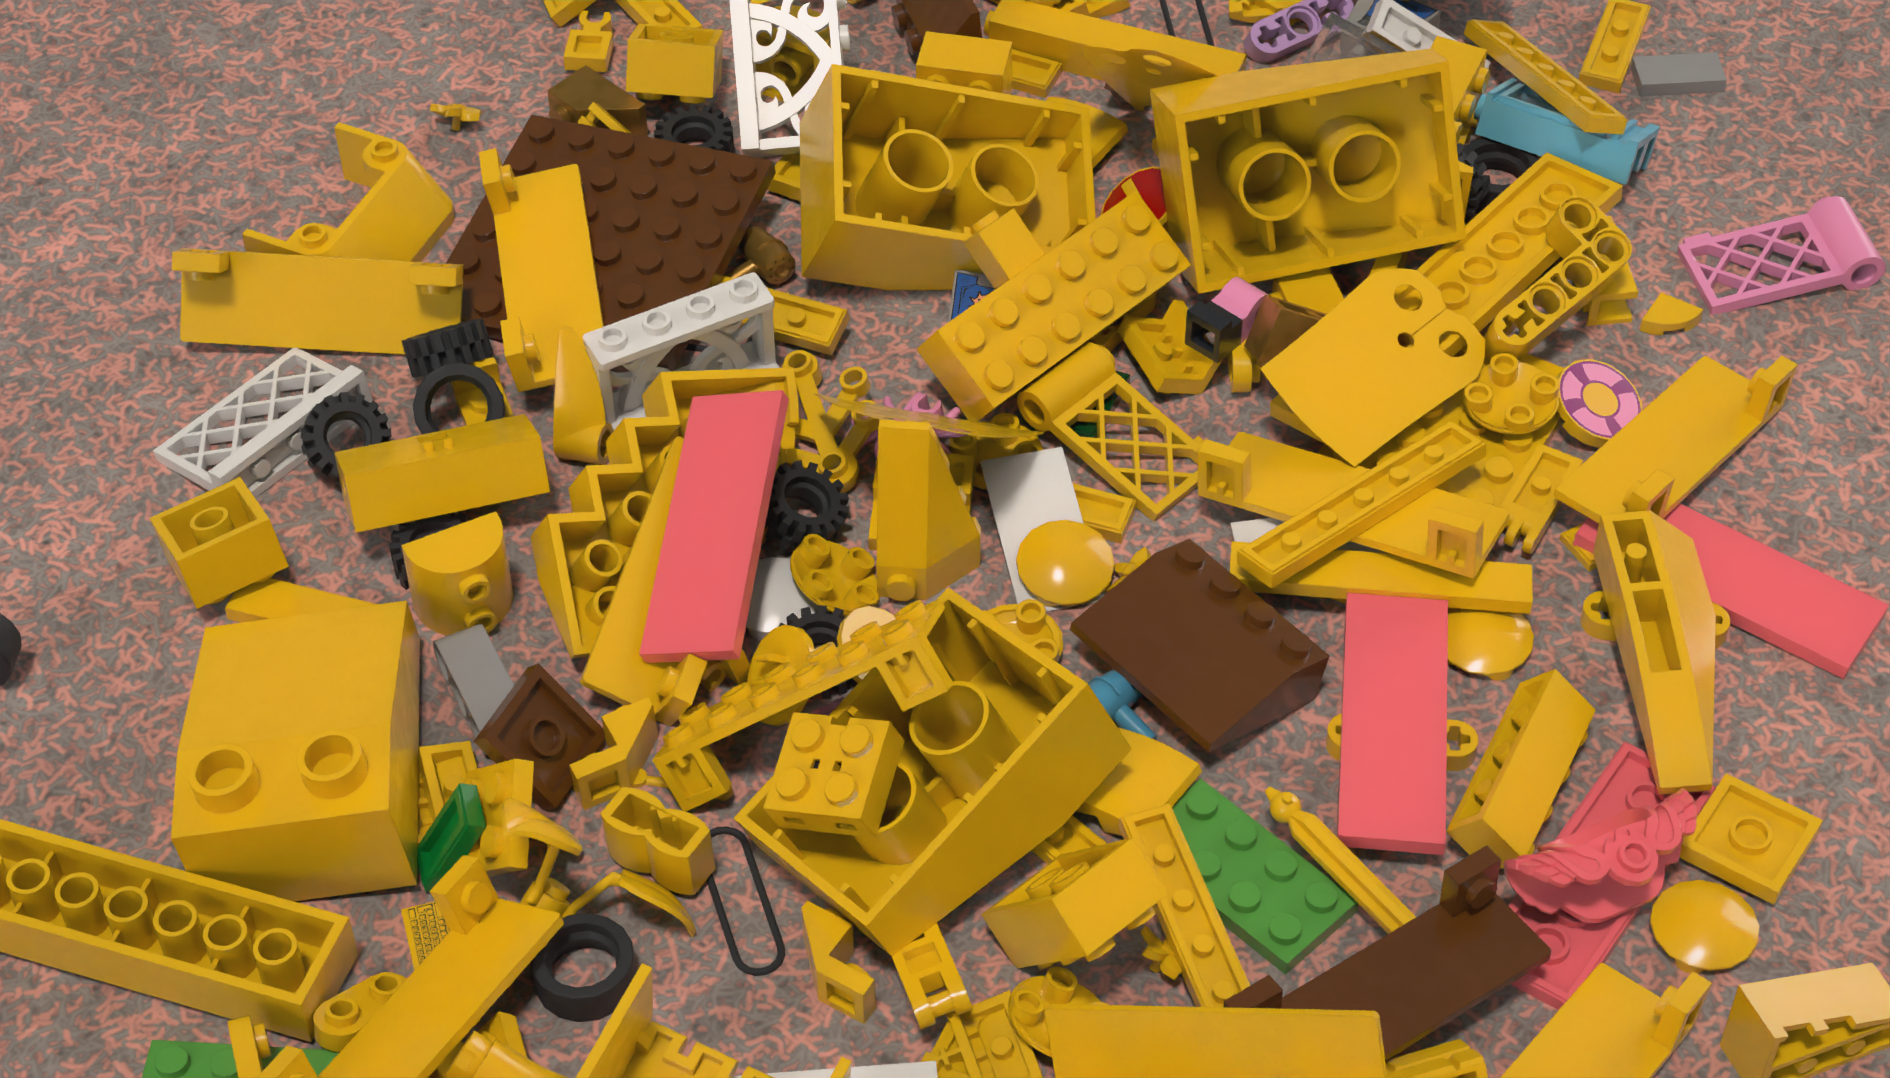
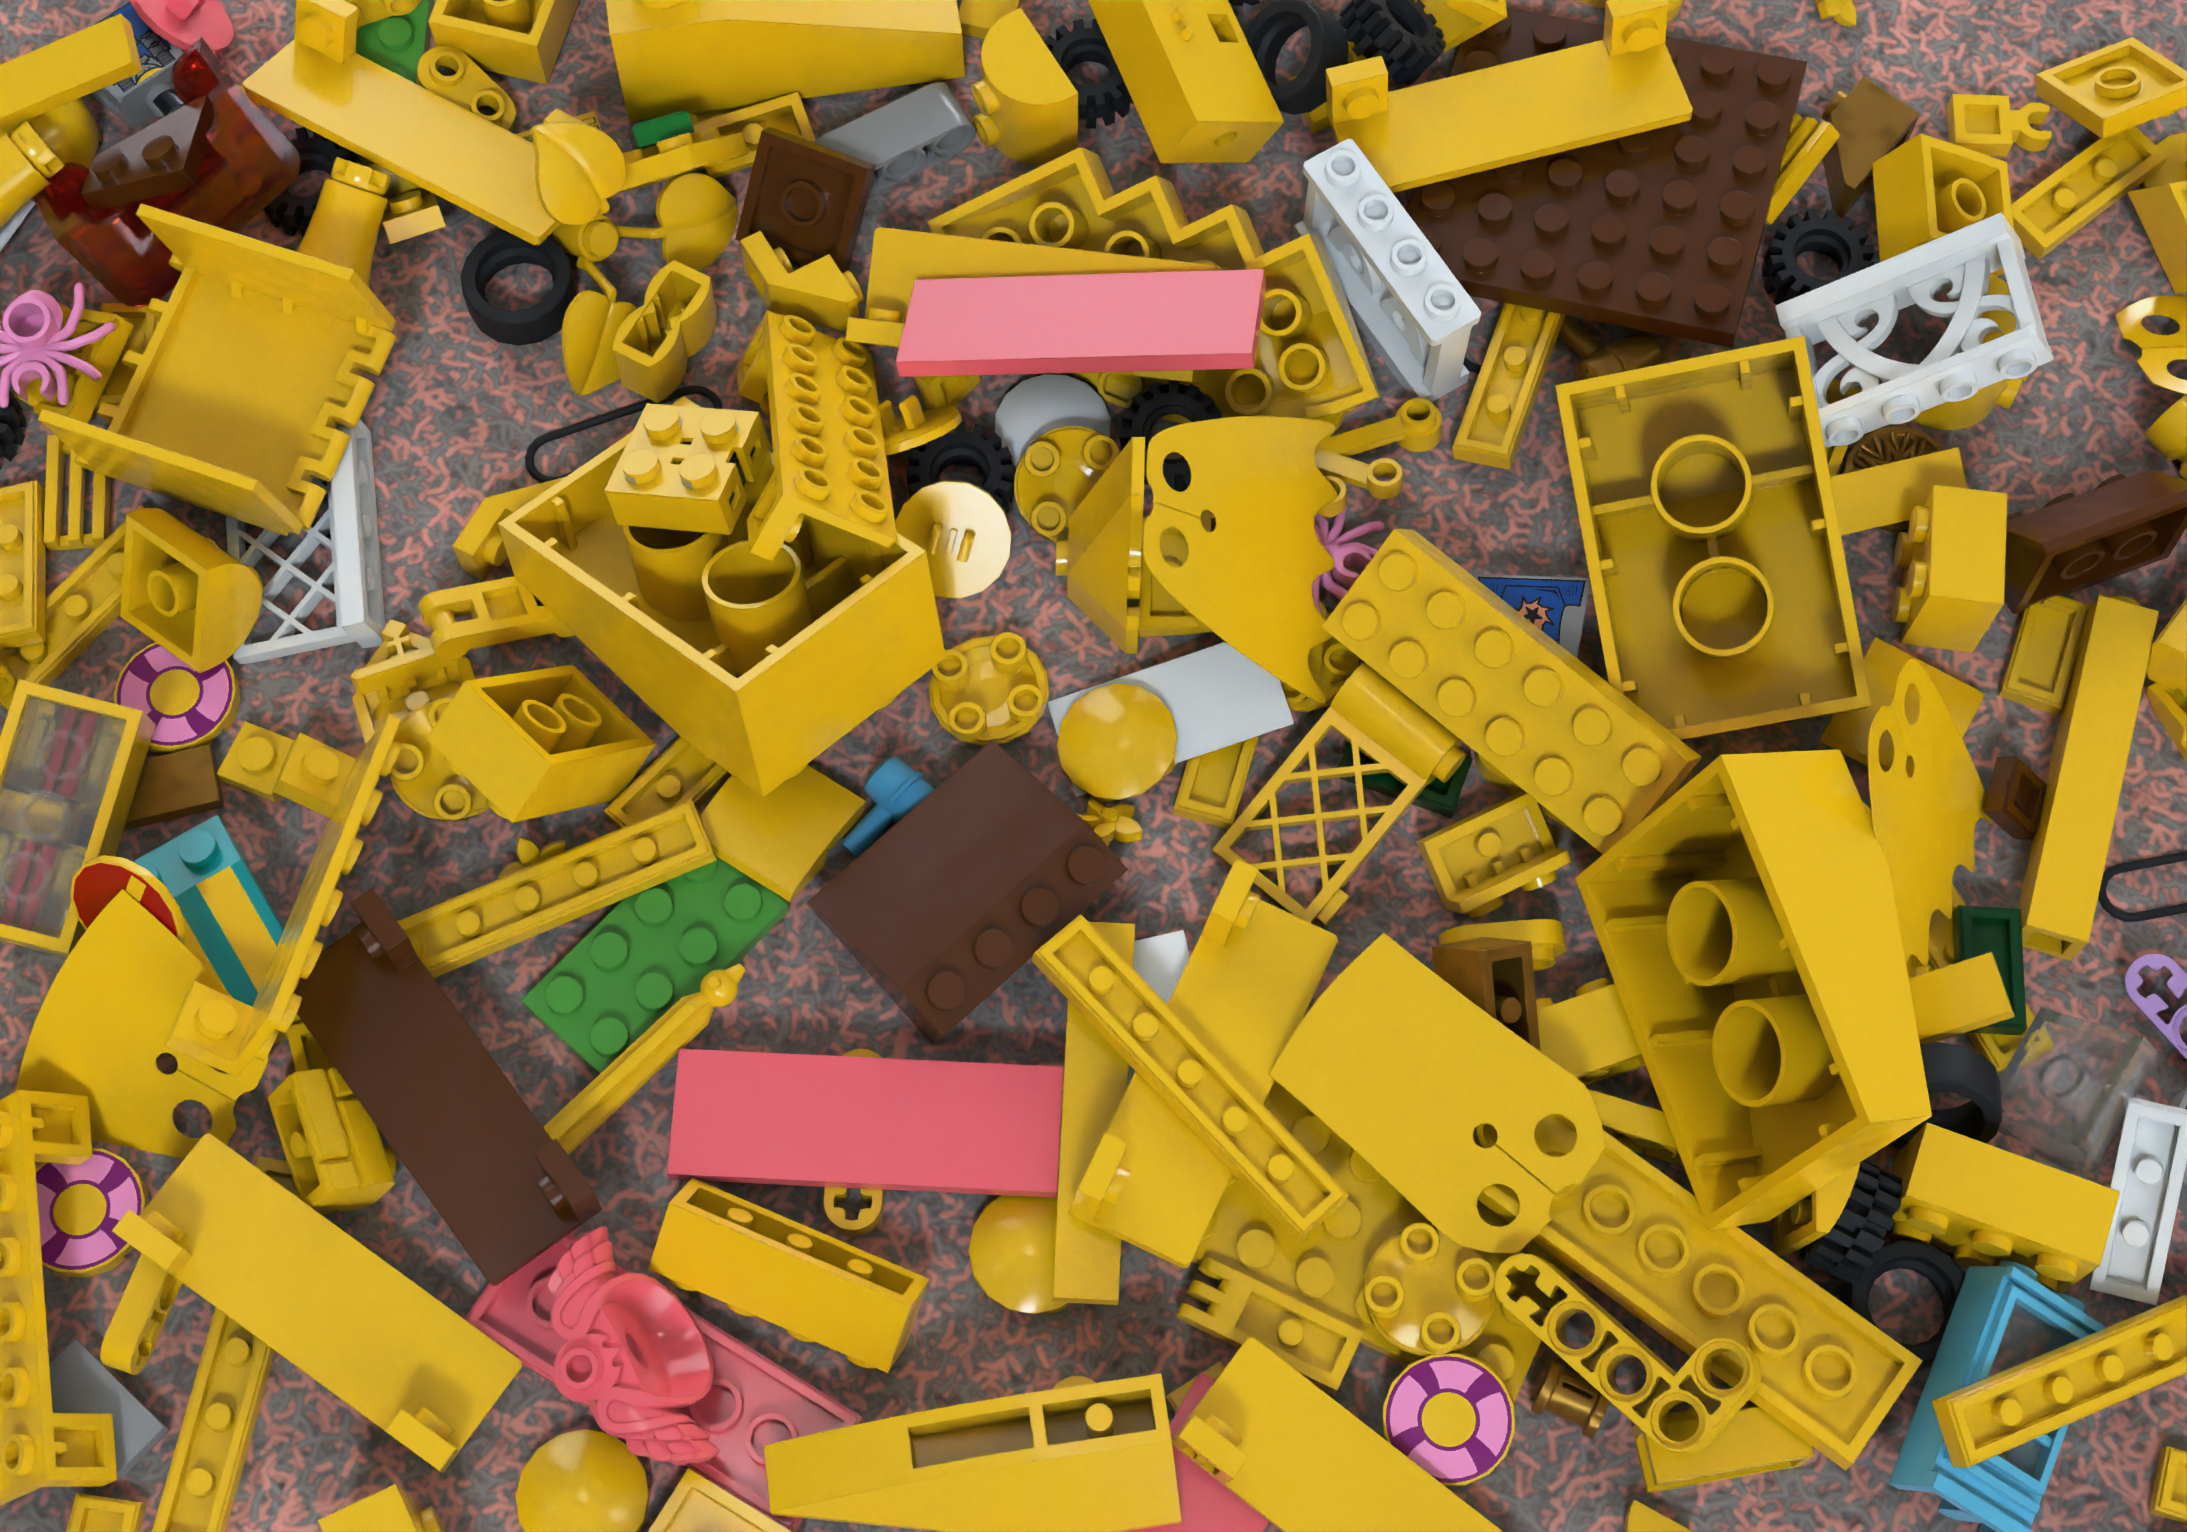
camera: 85 degrees right, 20 degrees up
(578, 405) = (1280, 180): yellow piece -> none
(1002, 246) = (1575, 607): yellow brick -> none
(1227, 316) = (1514, 906): black leg -> none
(1574, 342) = (1570, 1398): none -> pearl gold bush

